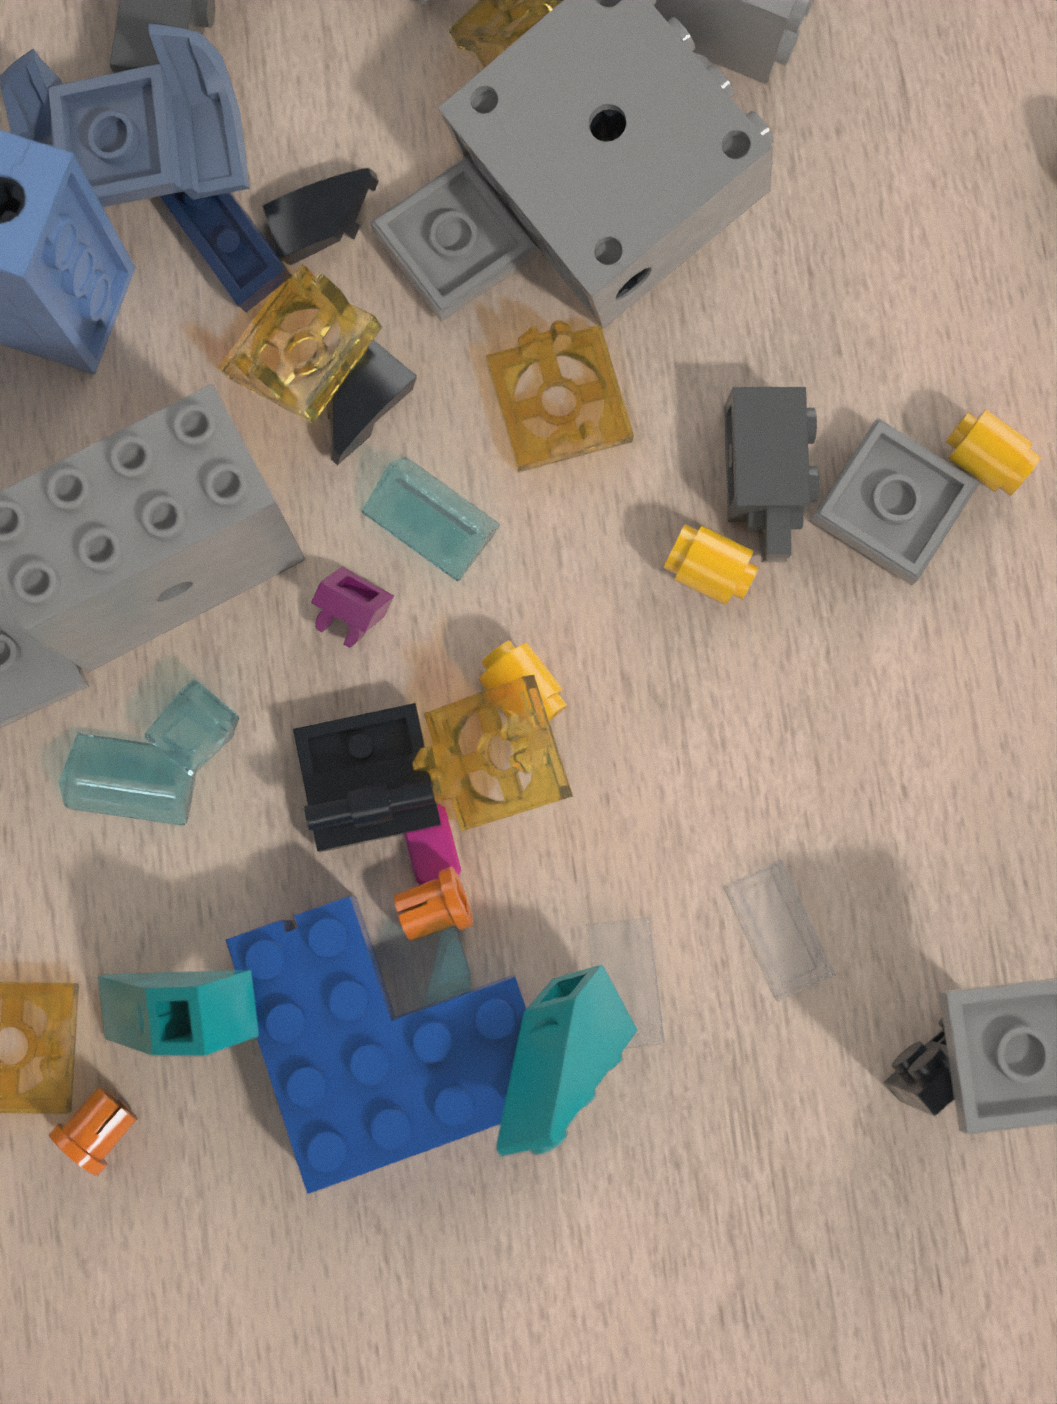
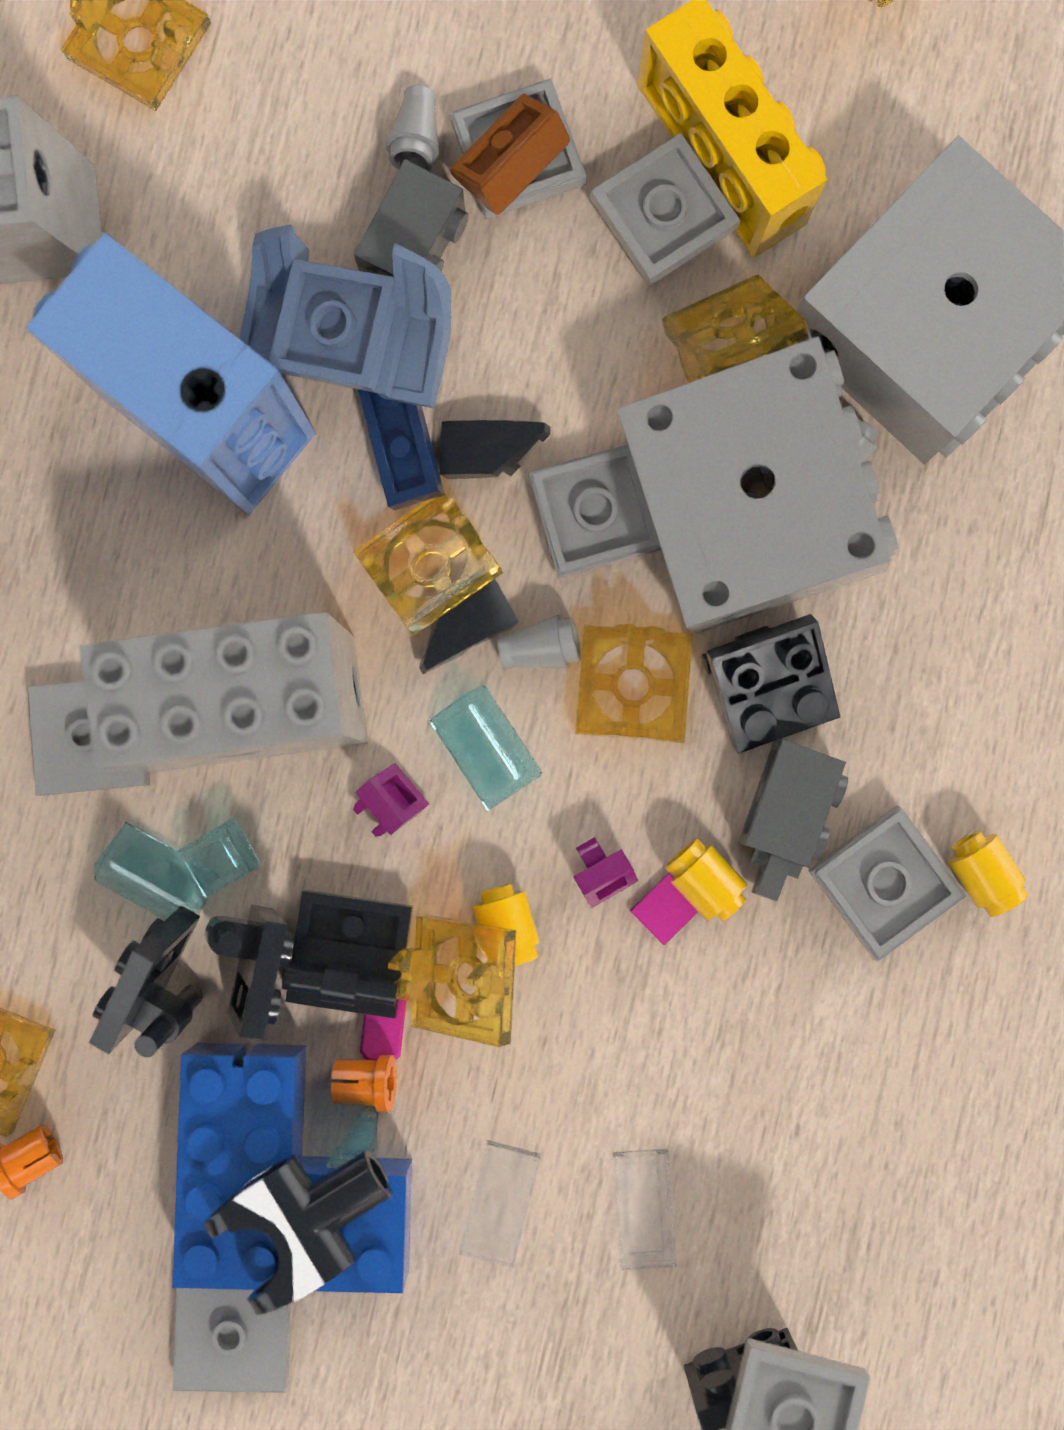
camera: 30 degrees right, 5 degrees up
(156, 889) = (140, 993): none -> black plate
(178, 1011) = (121, 1103): teal slope -> none
(271, 797) = (261, 949): none -> black plate
(390, 1234) = (228, 1345): none -> light grey plate
(424, 1055) = (302, 1222): none -> black connector
(450, 390) = (542, 645): none -> light grey cone
(561, 1056) = (420, 1260): teal slope -> none
(602, 596) = (603, 874): none -> magenta tile
(680, 615) = (664, 910): none -> dark pink piece
(700, 340) = (773, 682): none -> black plate

